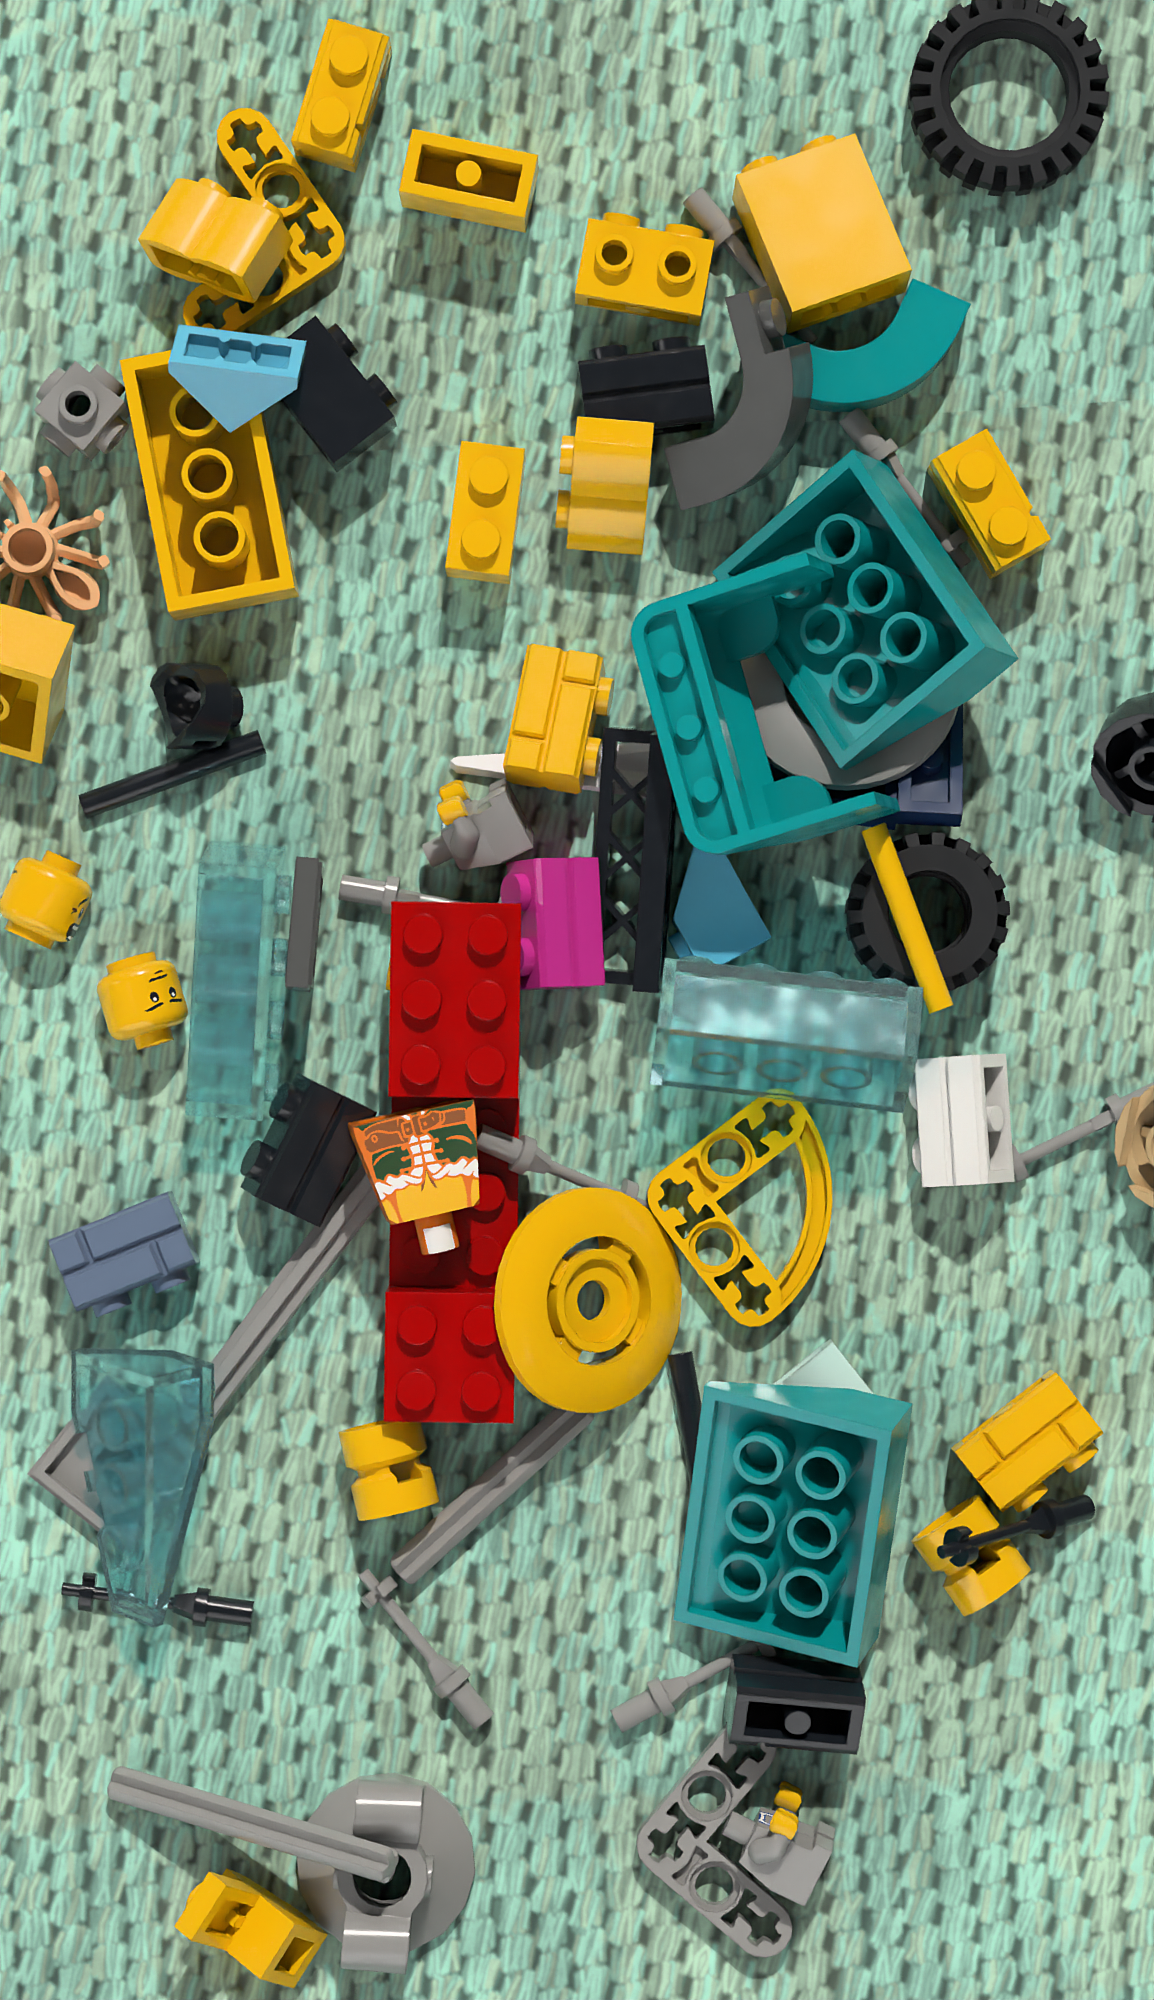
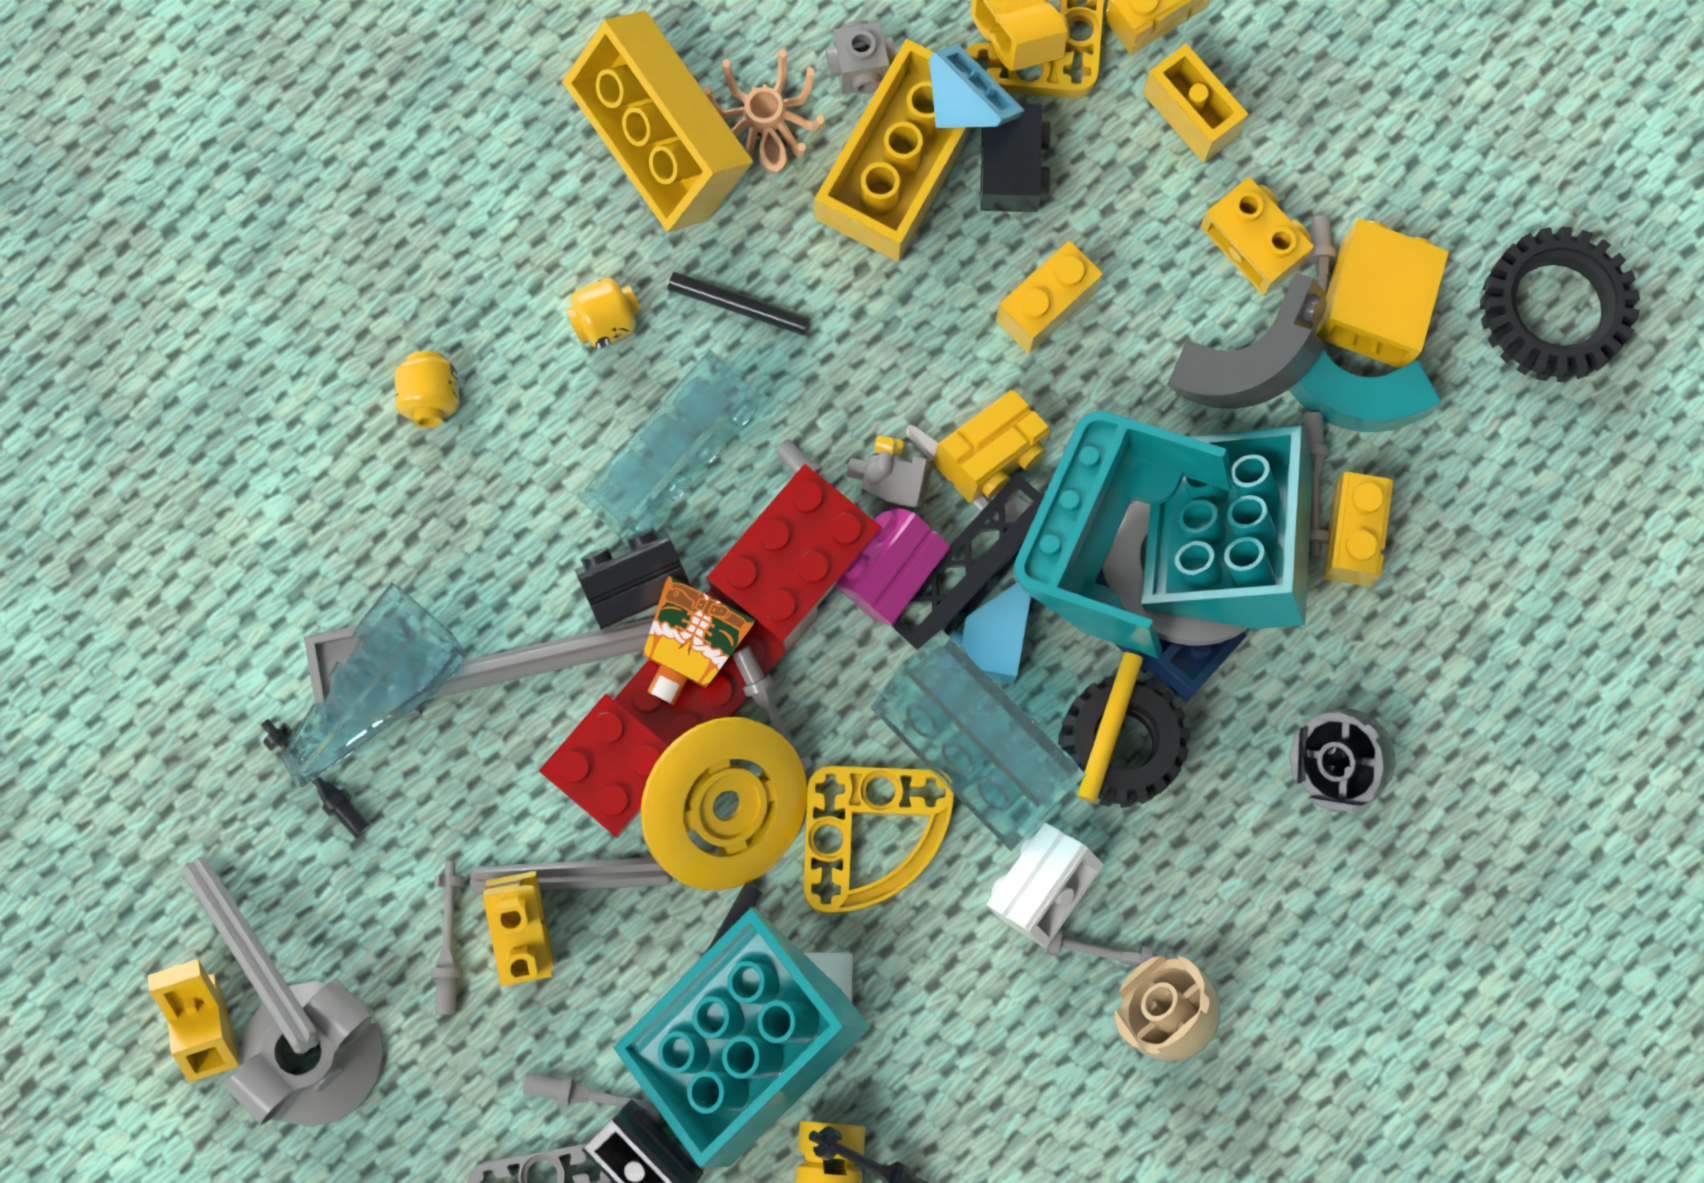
camera: 35 degrees right, 10 degrees down
(124, 1253) = (472, 553): sand blue brick -> none
(142, 1000) = (609, 413): yellow head -> none
(196, 704) = (787, 271): black piece -> none
(304, 924) = (741, 443): dark grey tile -> none
(388, 1468) = (530, 792): yellow wheel -> none
(489, 1584) = (518, 928): none -> yellow hips
(607, 485) = (1135, 335): yellow brick -> none
(651, 387) = (1200, 303): black brick -> none
(1028, 1443) = (923, 1120): yellow brick -> none

